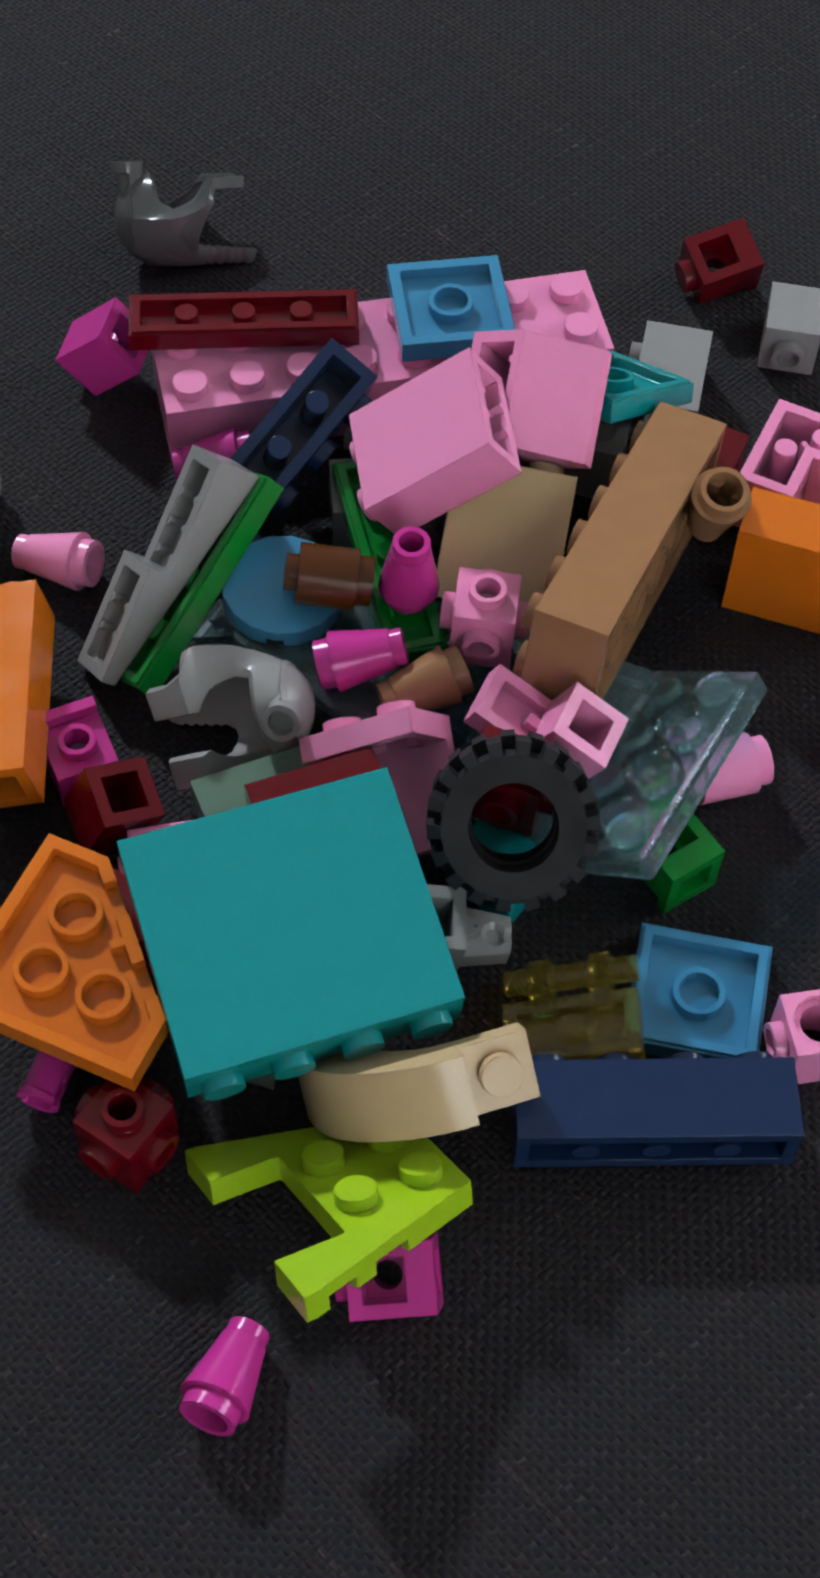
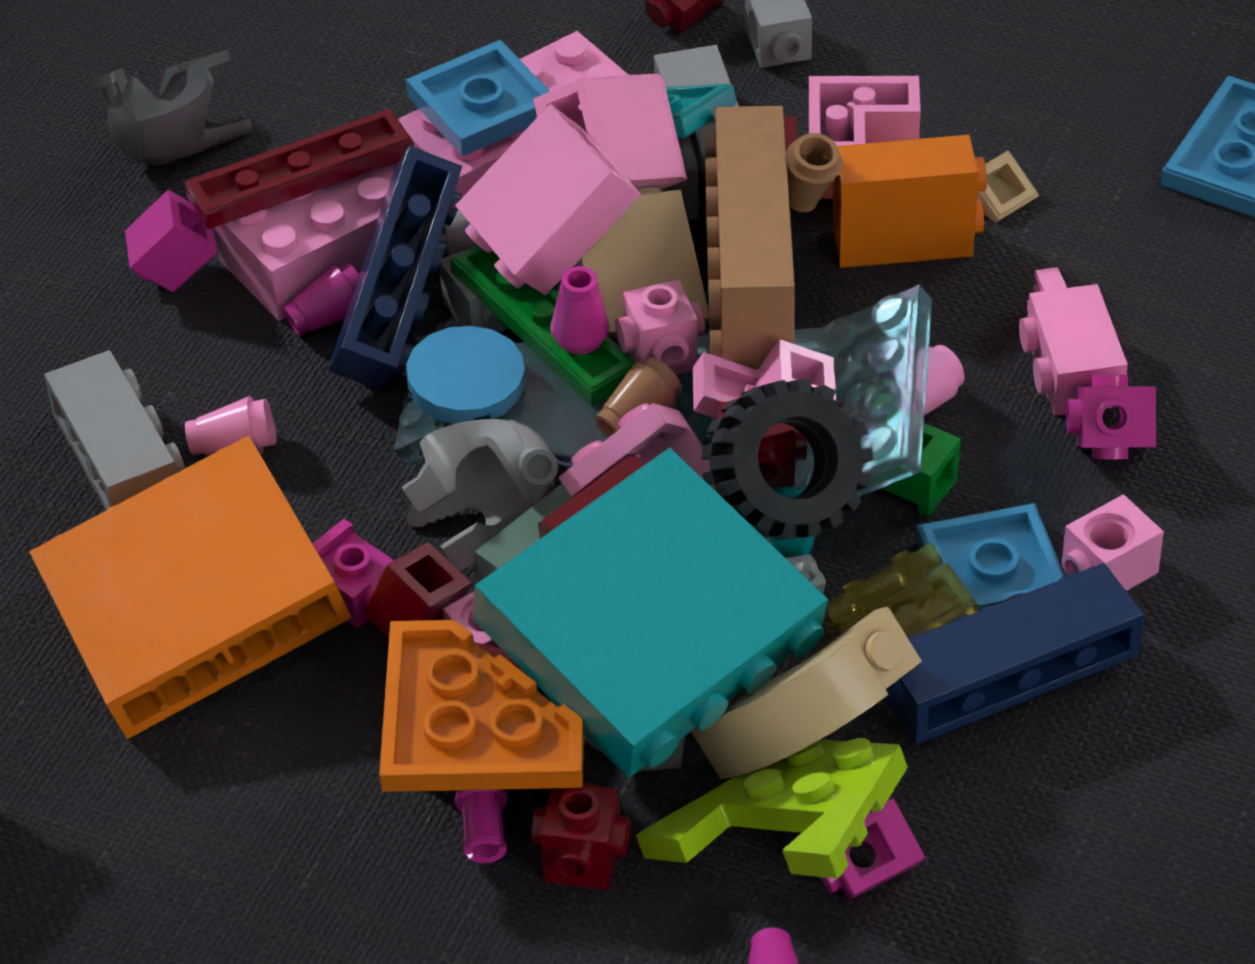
camera: 20 degrees left, 10 degrees down
(146, 586) = (342, 414): light grey slope -> none
(184, 616) = (387, 394): green tile -> none
(329, 576) = (510, 342): reddish brown brick -> none
(358, 656) = (568, 398): dark pink cone -> none

